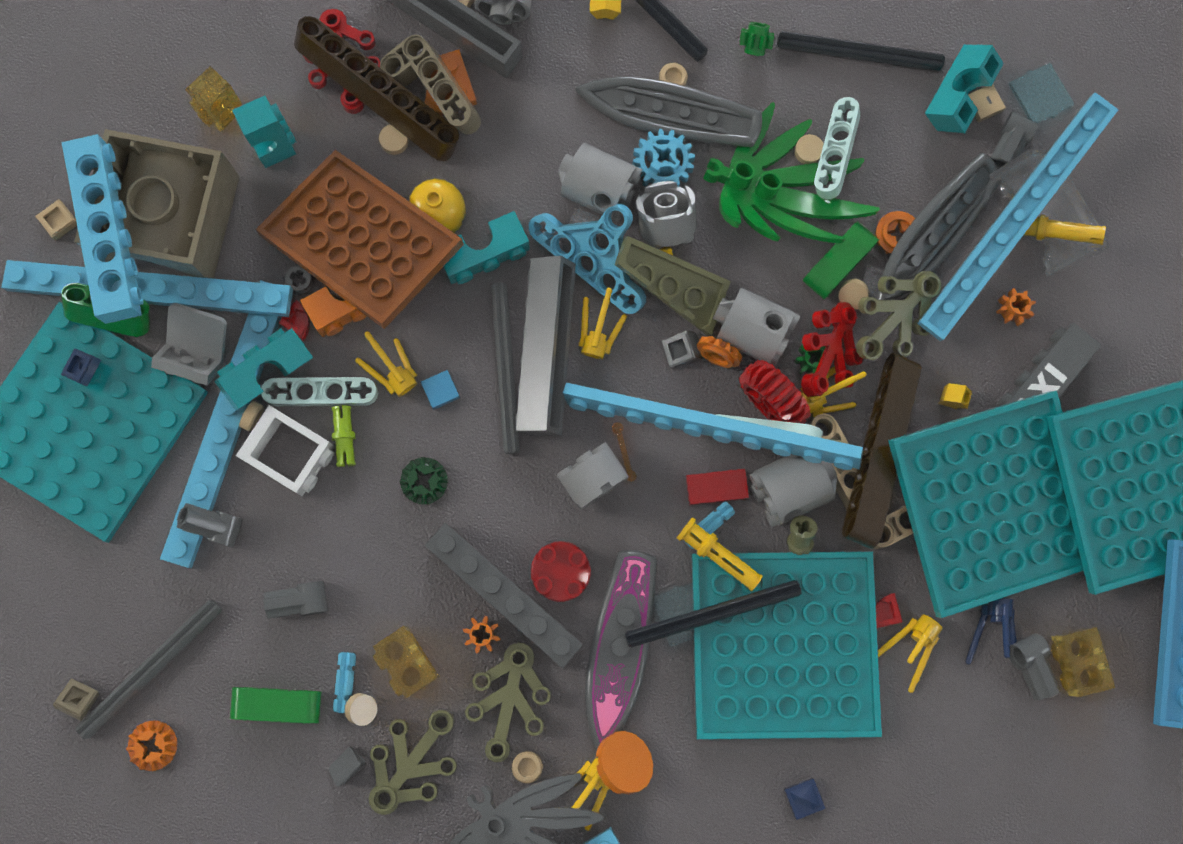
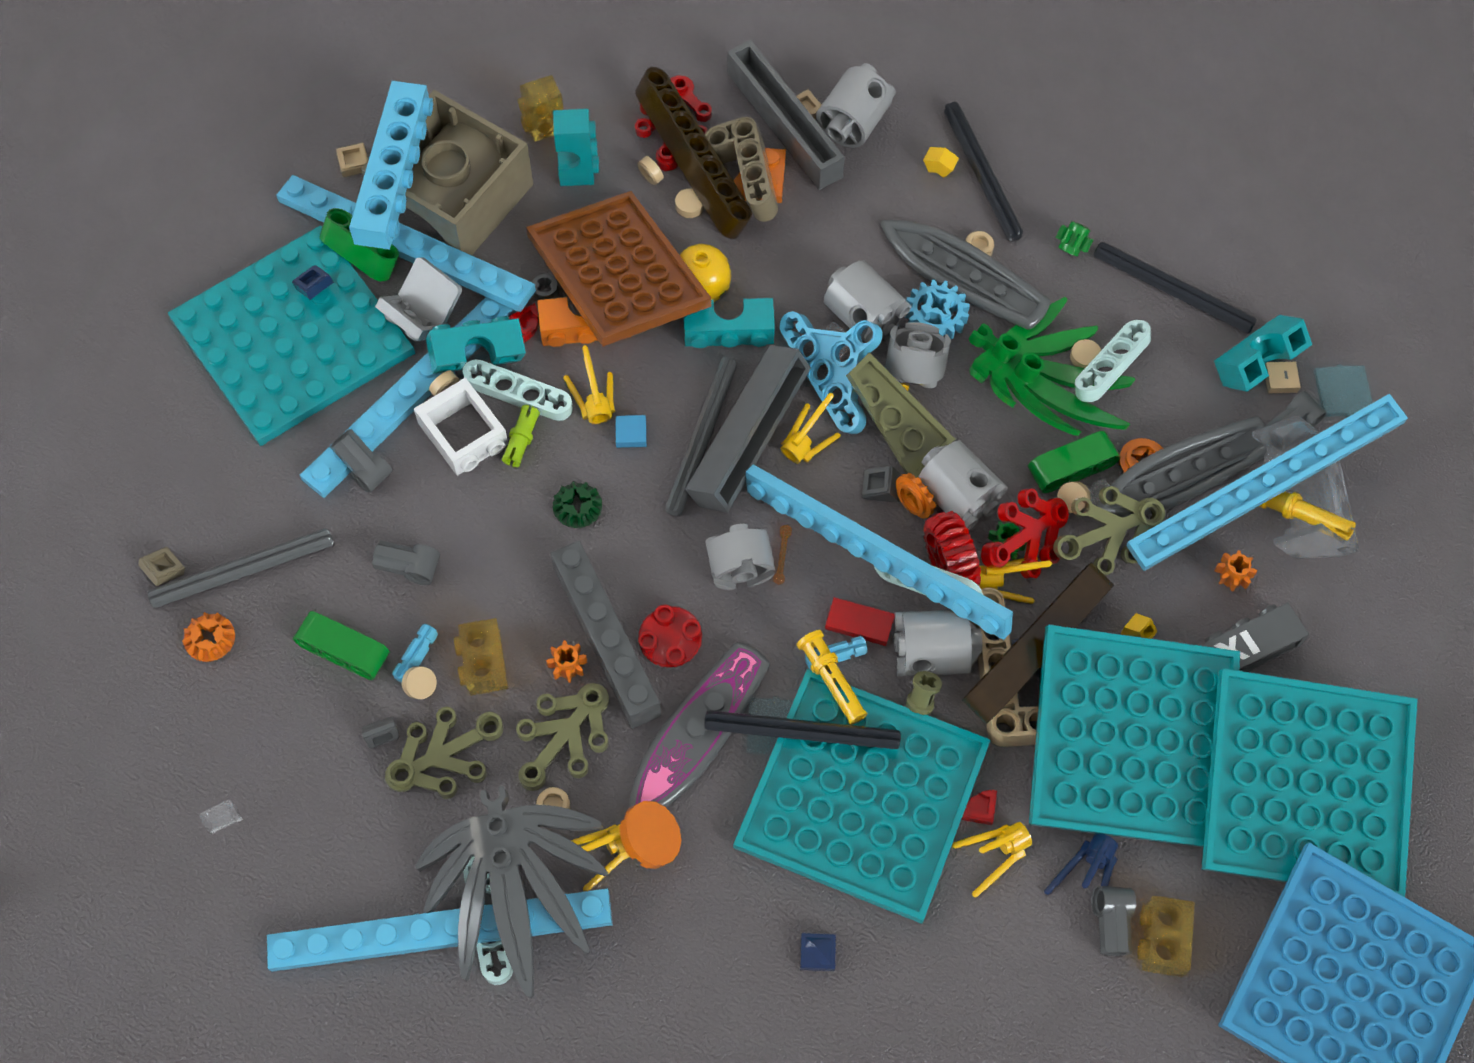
camera: 25 degrees right, 15 degrees down
(343, 121) = (650, 170): none -> tan tile

